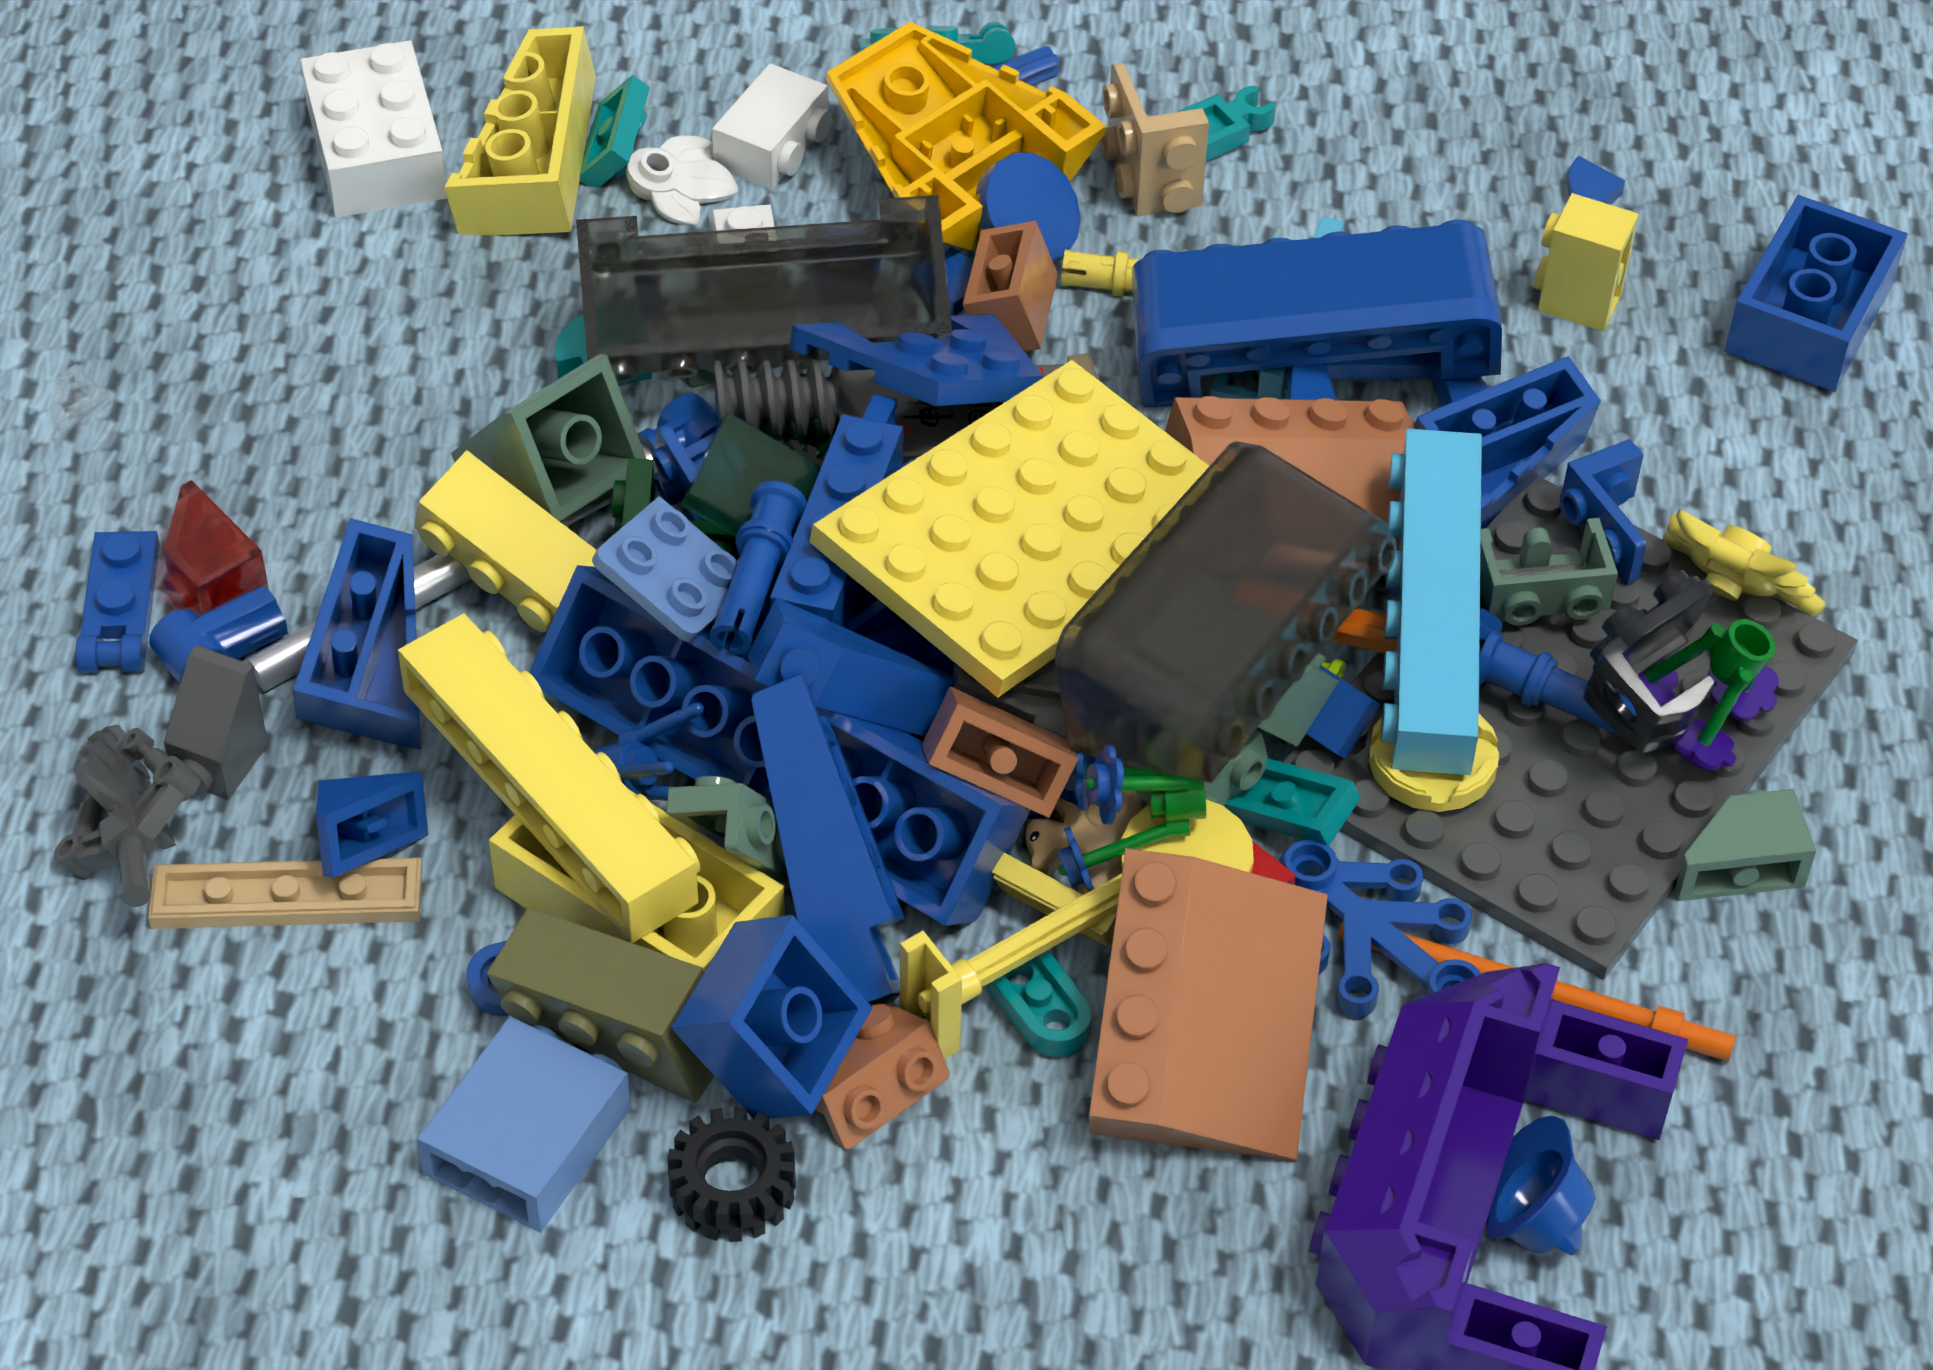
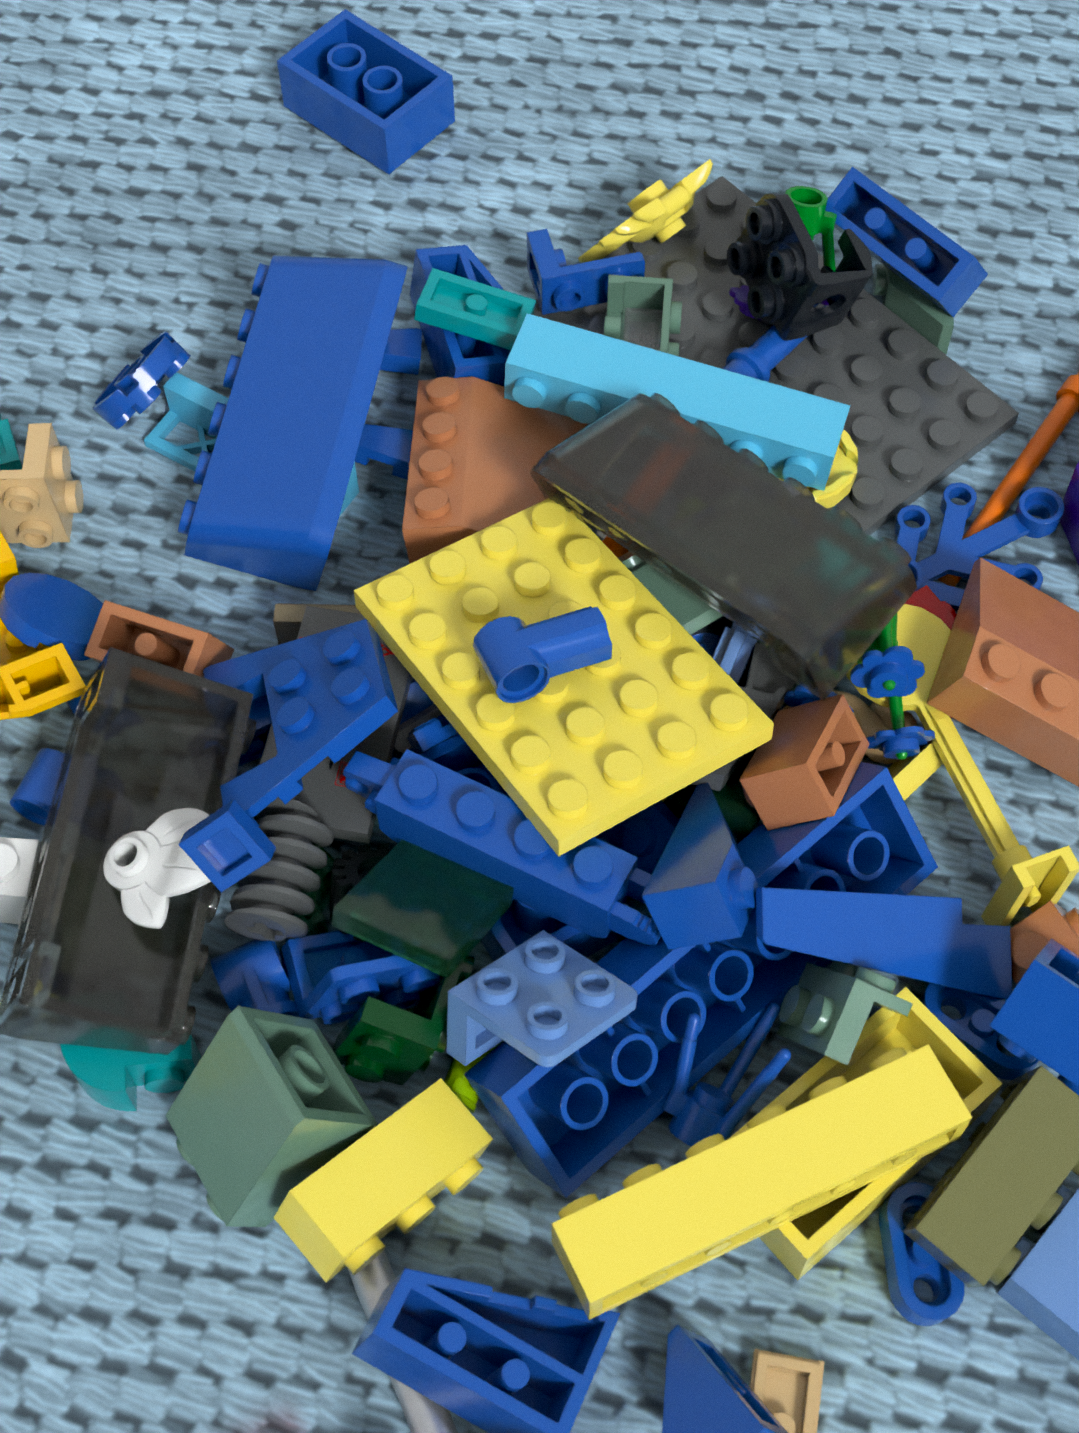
camera: 75 degrees left, 10 degrees up
(757, 305) = (153, 867): none -> white plate
(762, 548) = (533, 906): blue pin -> none
(768, 326) = (227, 845): none -> blue plate
(1007, 463) = (525, 657): none -> blue piece
(1043, 1000) = (1009, 794): teal plate -> none
(1098, 271) = (151, 564): light yellow pin -> none
(1325, 194) = (137, 383): none -> blue plate
(1492, 405) = (472, 308): none -> teal plate
(1585, 261) = (290, 211): light yellow brick -> none
(1594, 182) = (172, 206): blue tile -> none
(1757, 768) = (906, 242): none -> blue brick

